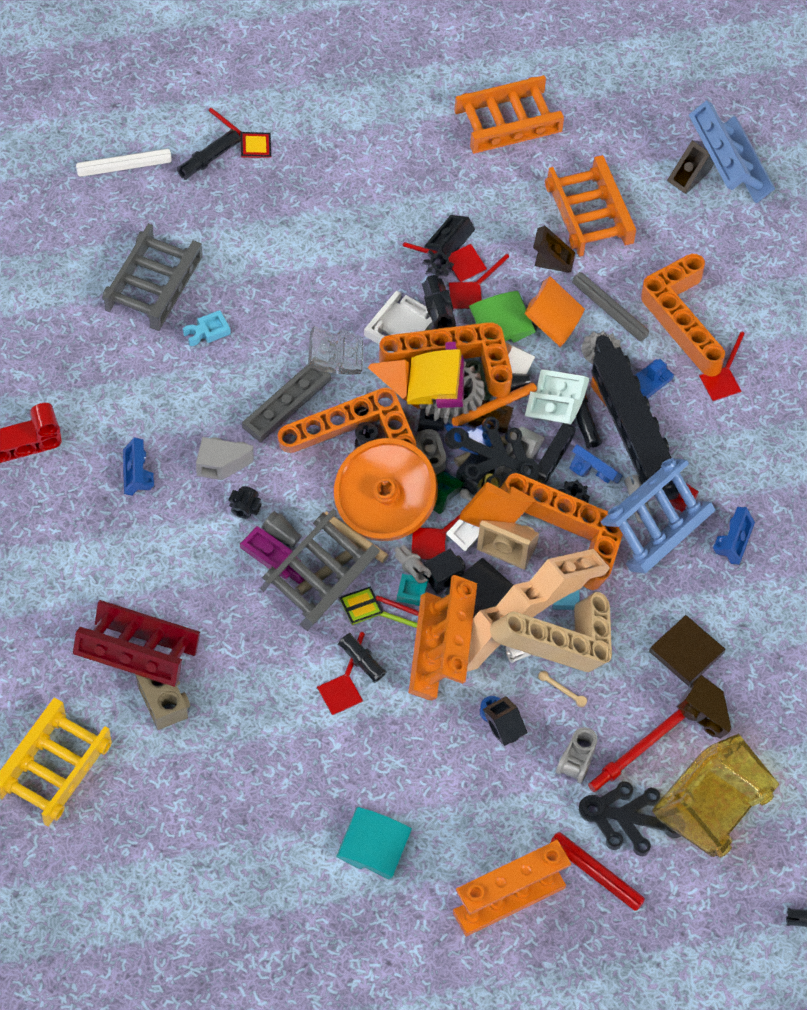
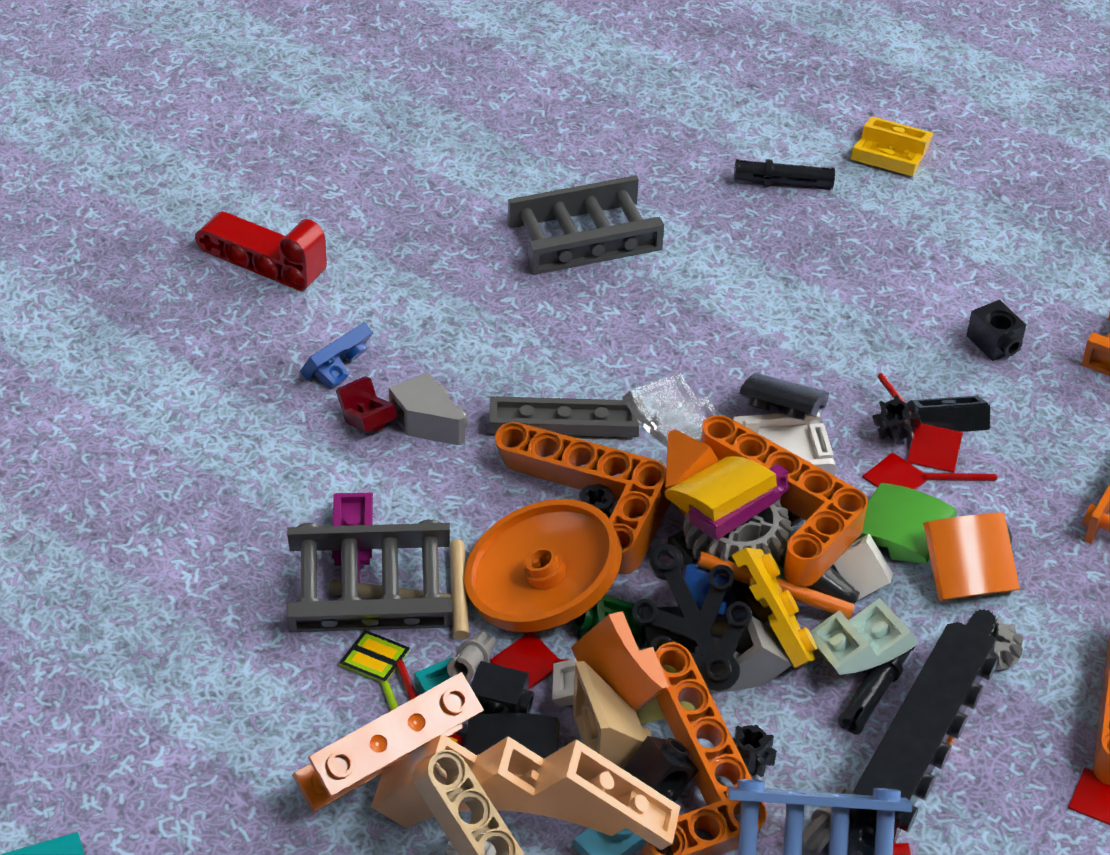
camera: 50 degrees right, 15 degrees down
(123, 162) = (693, 128): white axle -> none
(133, 657) = (79, 499): dark red fence -> none
(158, 697) = (64, 556): dark tan brick -> none
(191, 485) = (362, 406): none -> dark red bracket
(209, 327) = (577, 304): medium azure plate -> none
(237, 87) = (891, 146): none -> yellow slope
(244, 502) = (391, 463): black gear -> none
(252, 143) = (844, 198): piece -> none
(281, 529) = (392, 506): dark grey cone -> none
(341, 692) = (236, 716): red piece -> none
(362, 657) = (296, 699): black pin -> none
(376, 294) = (795, 398): none -> black slope
(422, 168) = (996, 330): none -> black brick
(434, 450) = (637, 579): dark grey plate -> none
(438, 302) = (842, 446): black piece -> none
(514, 413) = (796, 641): none -> yellow wing
(552, 251) = (1051, 503): dark brown slope -> none
(555, 452) = (806, 687): black beam -> none
(555, 539) = (663, 766): none -> black brick
(585, 461) = (817, 732): blue hinge -> none
(610, 306) = (1057, 613): dark grey axle -> none
(654, 377) = (1008, 720): blue hinge -> none

